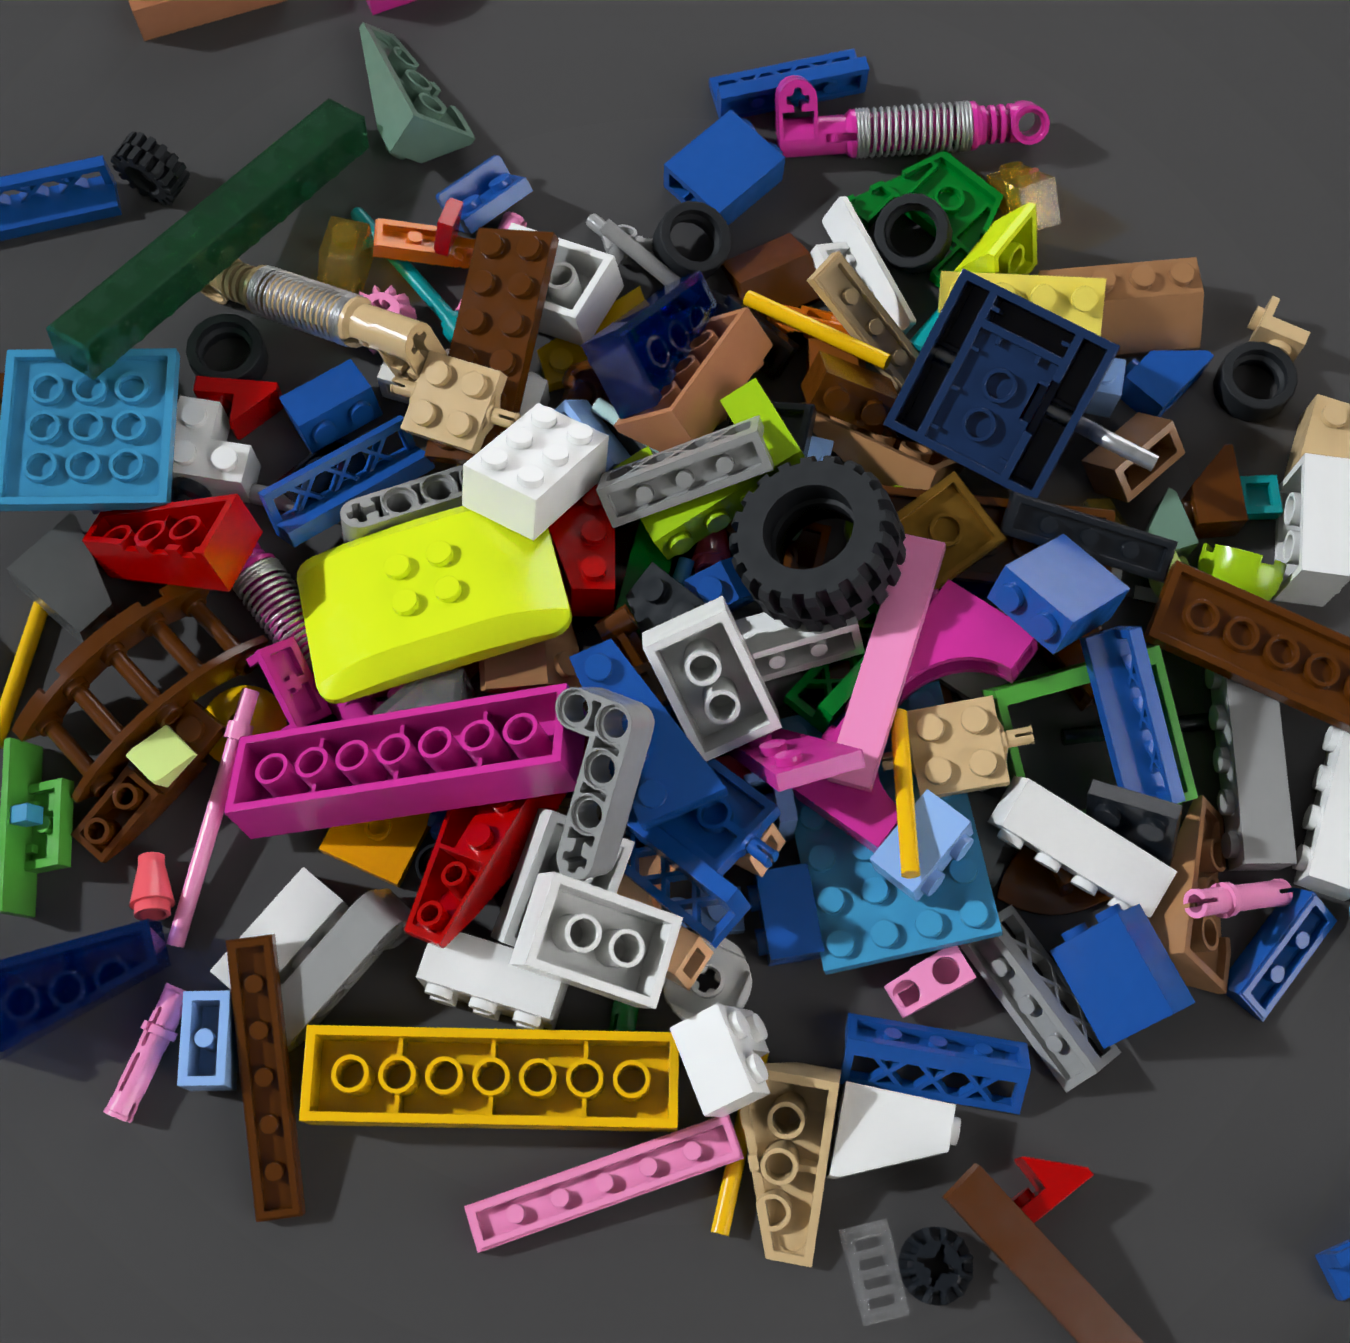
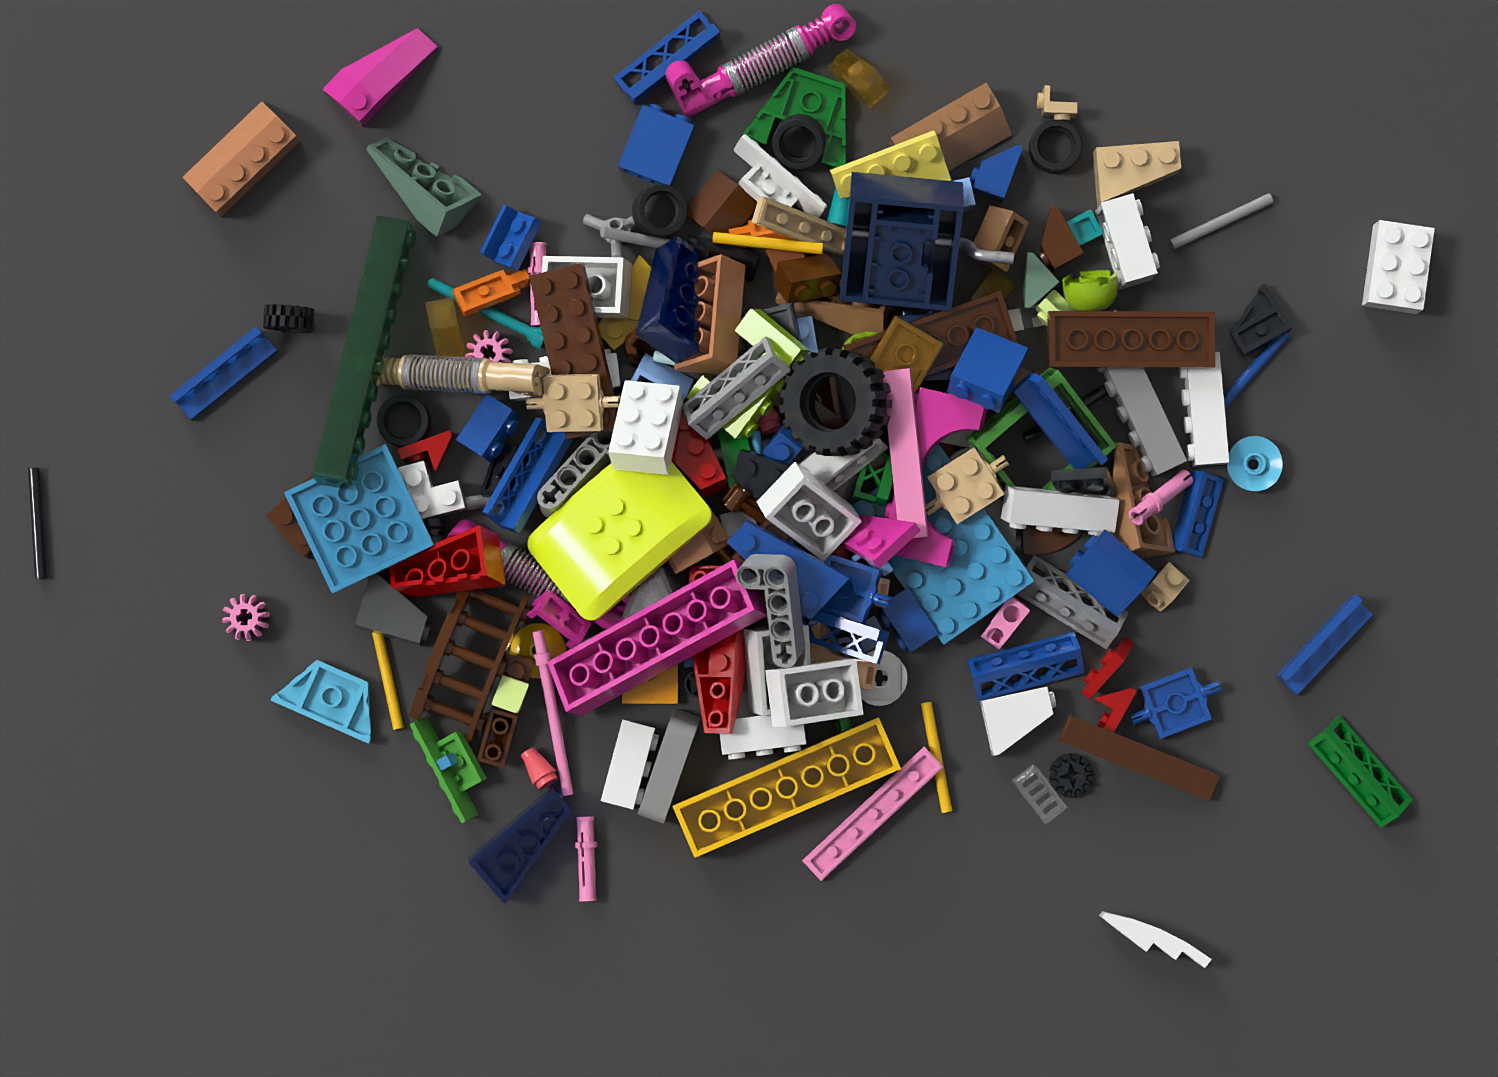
camera: 25 degrees left, 15 degrees up
(207, 1042) = (620, 838): light blue brick -> none
(265, 1078) = (660, 842): reddish brown tile -> none
(448, 227) = (504, 277): red tile -> none
(724, 1057) = (908, 721): white brick -> none
(789, 1154) = (962, 743): tan wedge -> none
(904, 796) = (948, 530): yellow bar -> none
(941, 837) = (970, 553): light blue brick -> none
(1007, 245) = (860, 130): neon yellow slope -> none
(1071, 1111) = (1111, 662): none -> red wing
(1102, 539) = (991, 317): black tile -> none
(1144, 1224) = (1175, 703): none -> blue plate
(1191, 1038) = (1165, 587): none -> tan bracket

